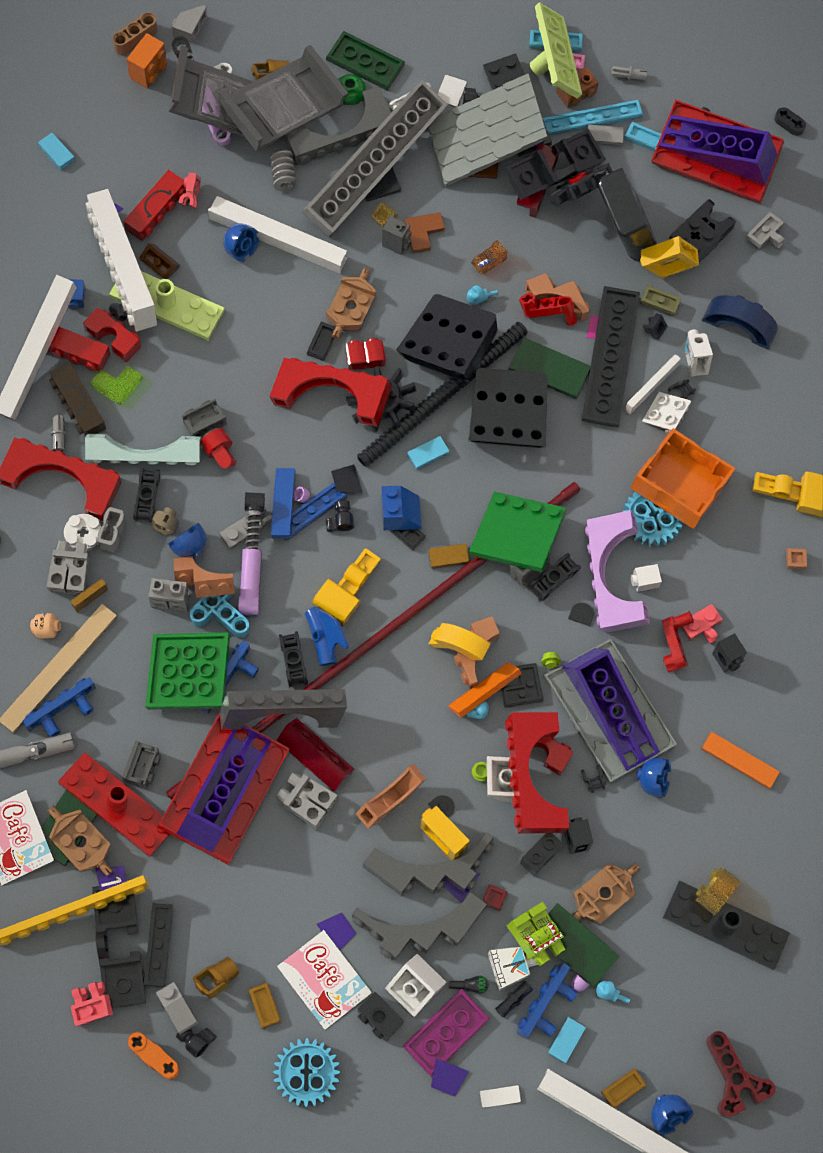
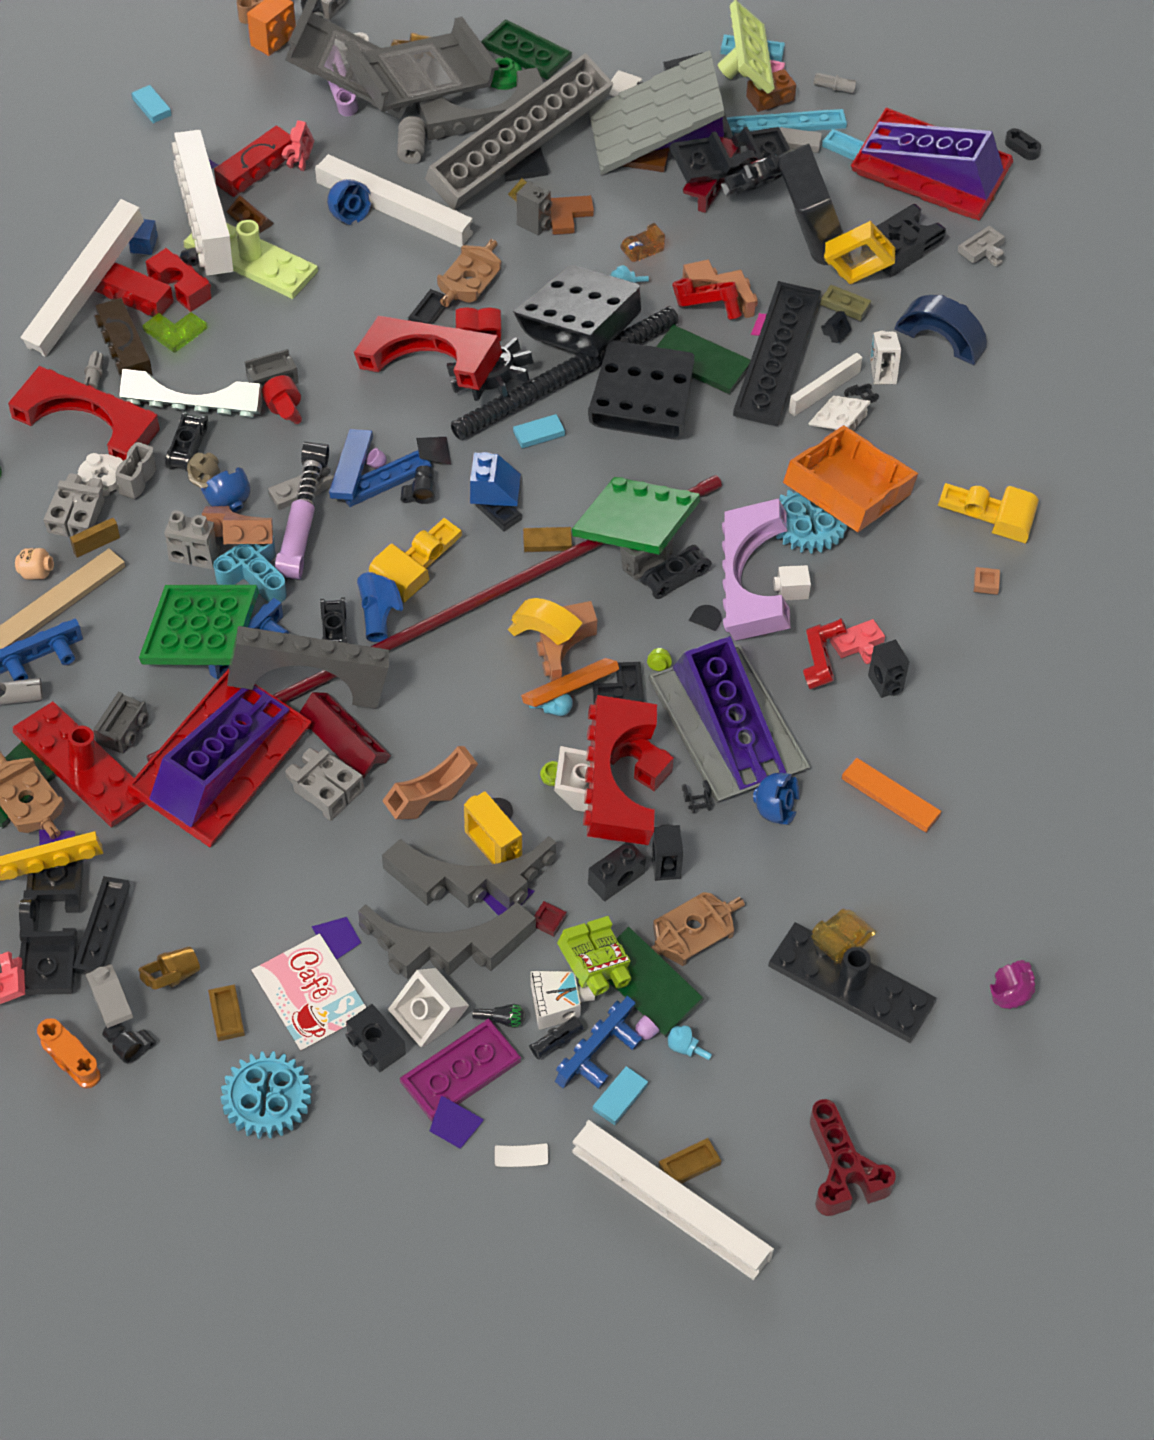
camera: 10 degrees right, 15 degrees down
(670, 1112) = (749, 1195): blue cylinder -> none

